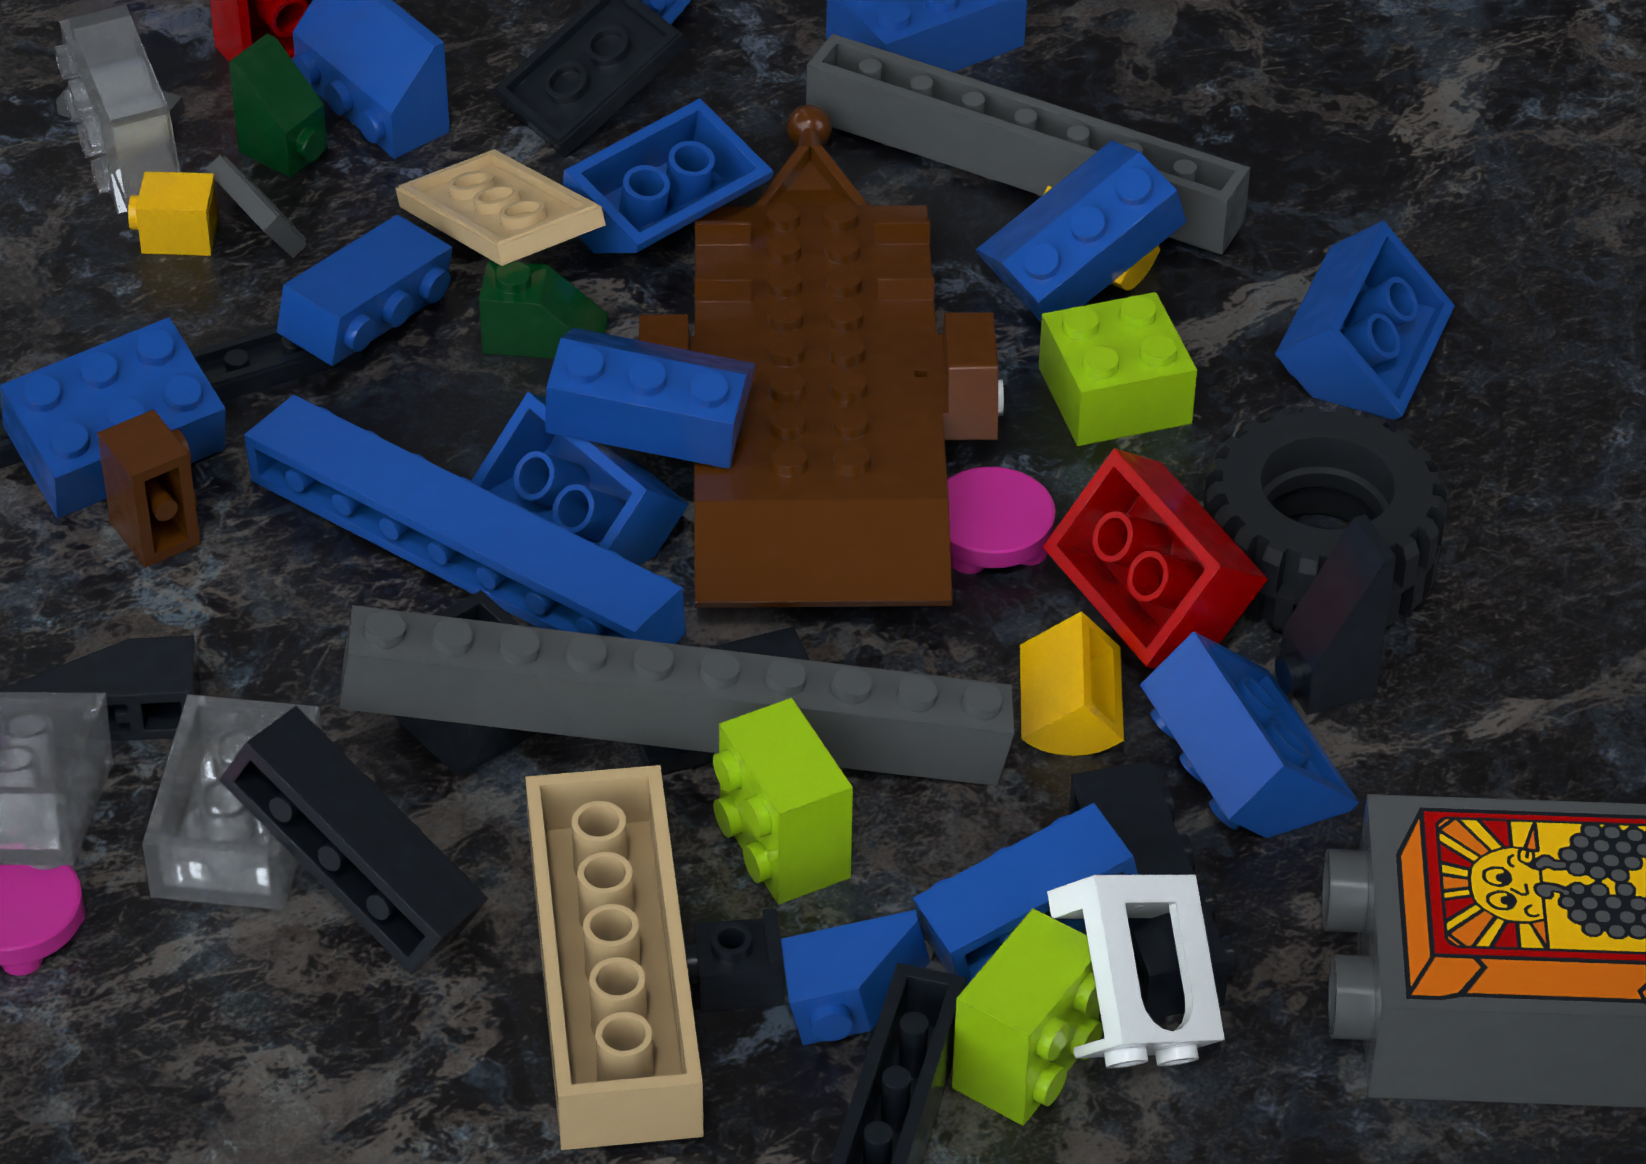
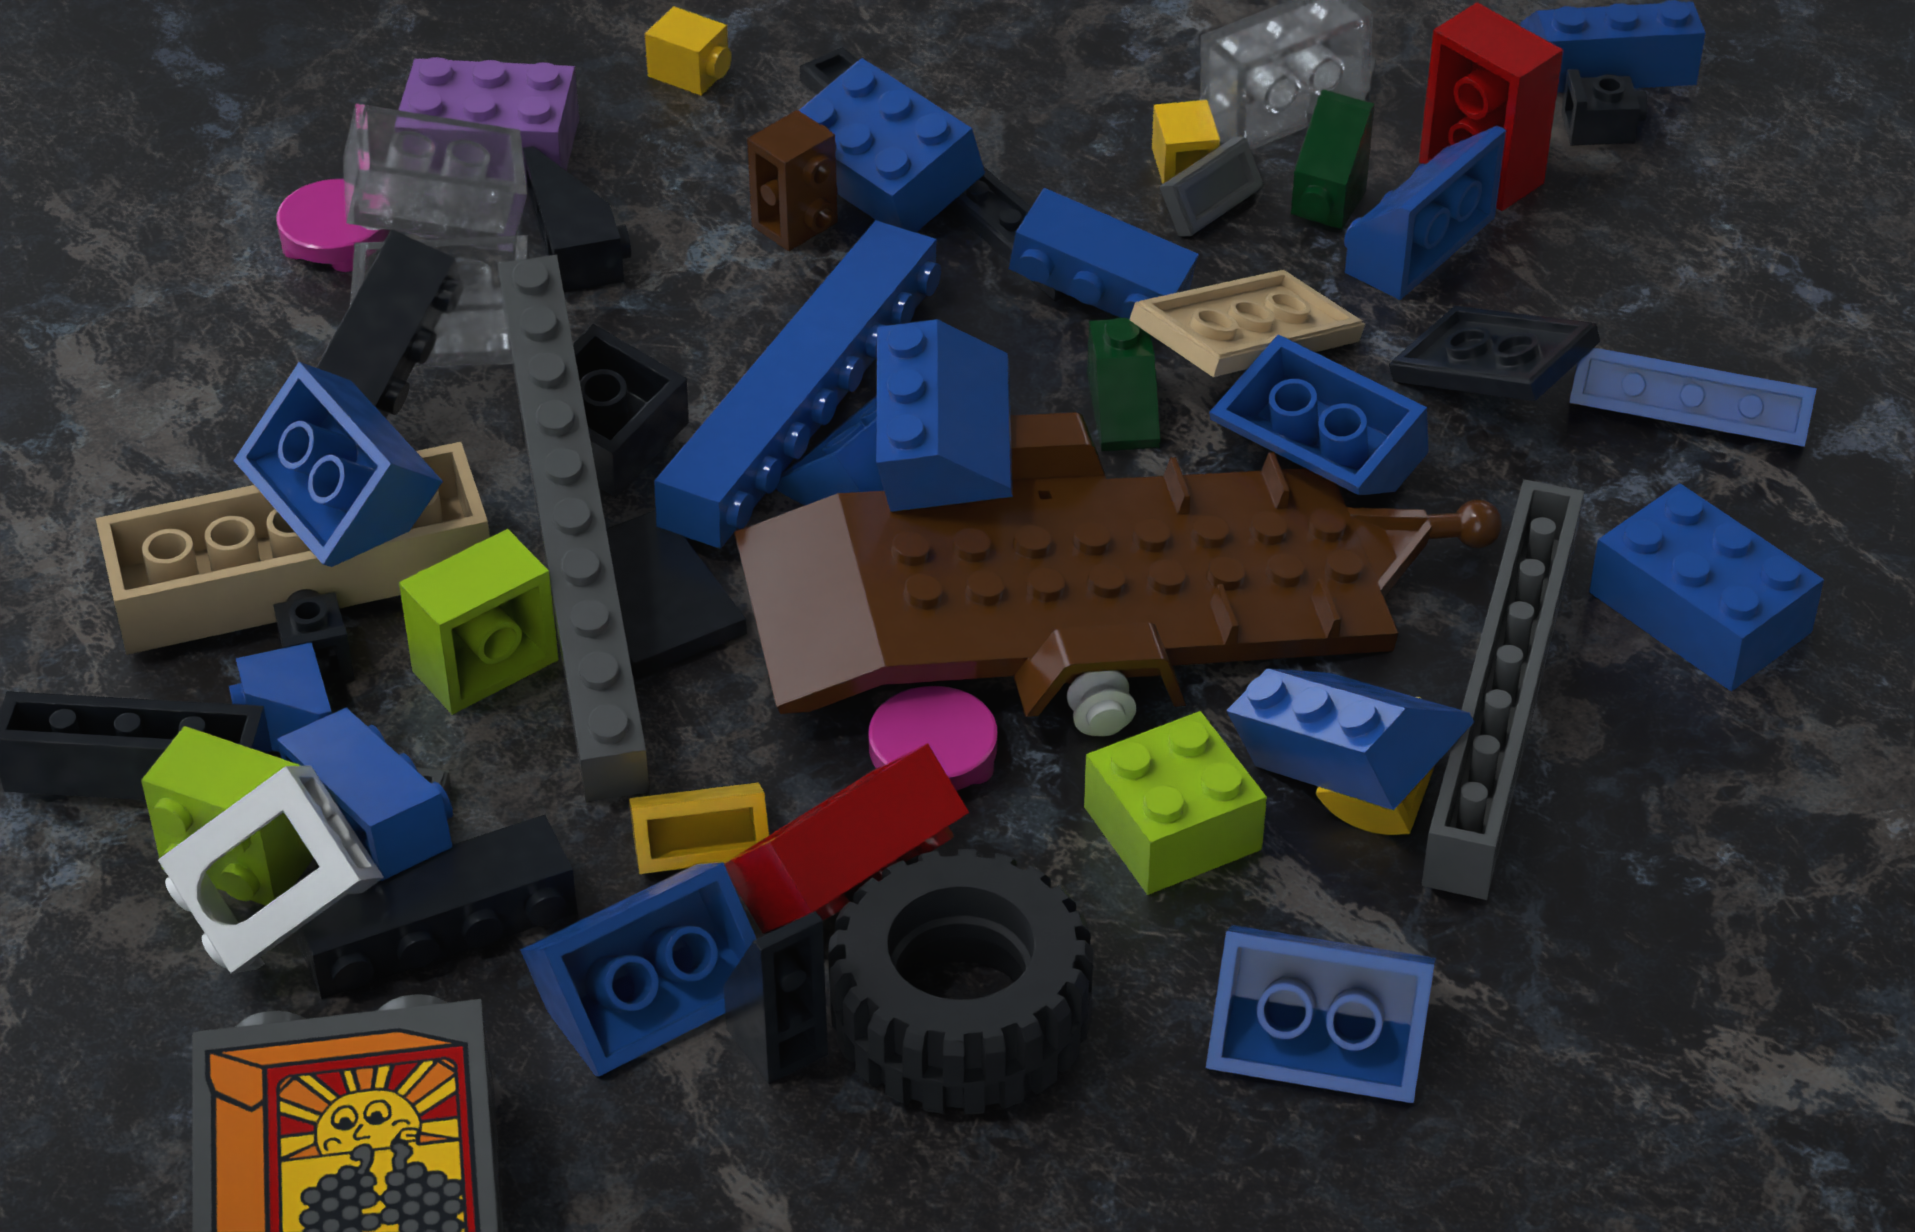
camera: 80 degrees right, 0 degrees up
(575, 860) = (335, 467): none -> blue slope

